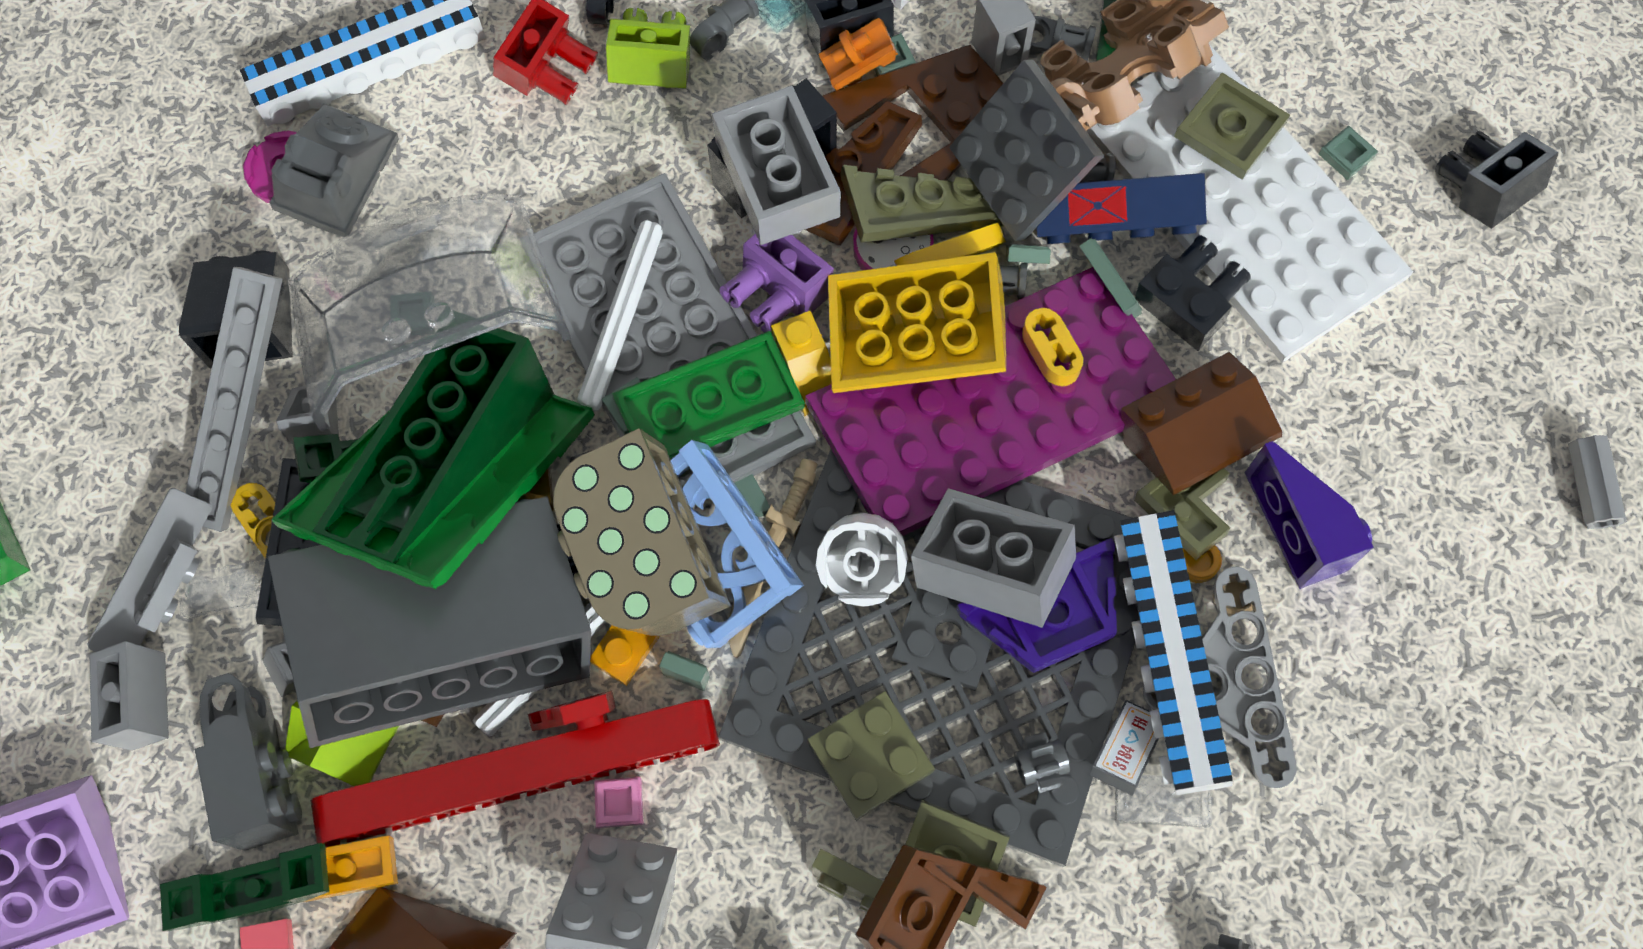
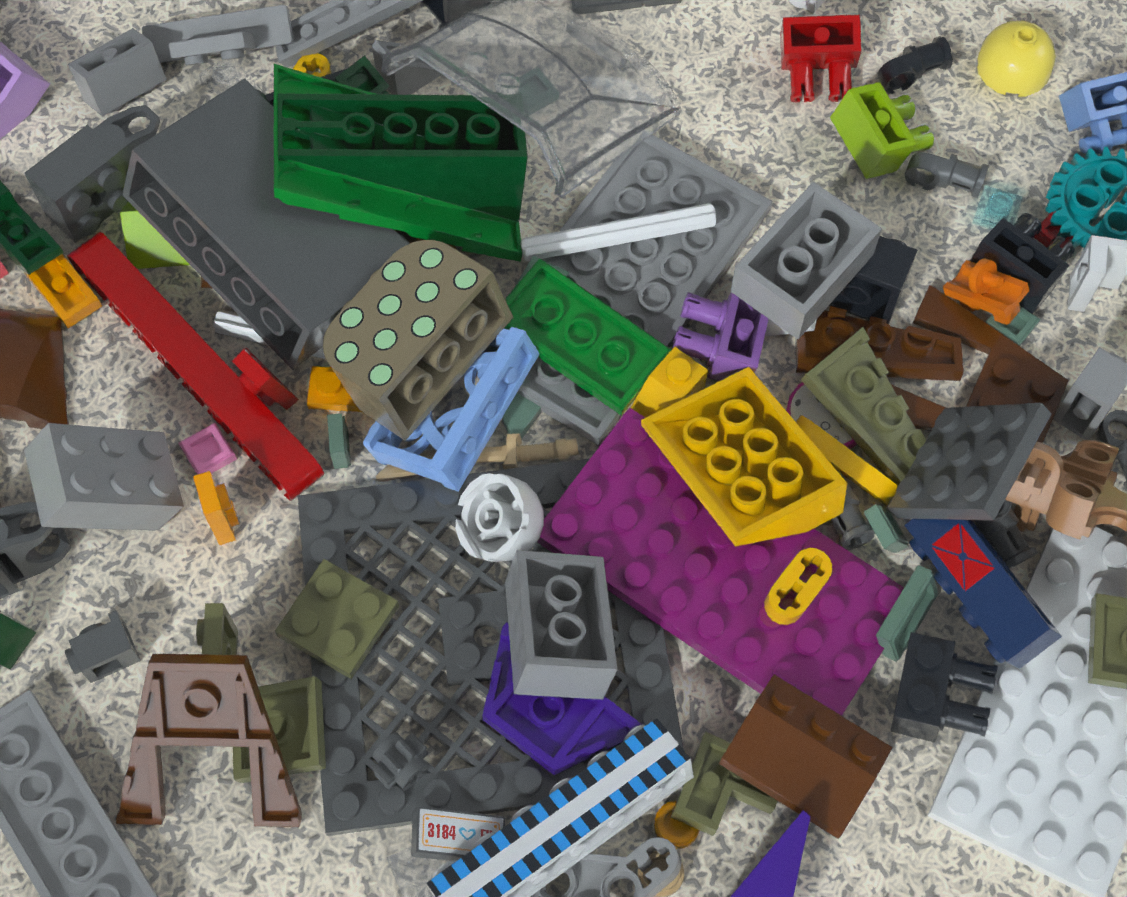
camera: 60 degrees right, 5 degrees down
(698, 815) = (216, 507): none -> light orange plate

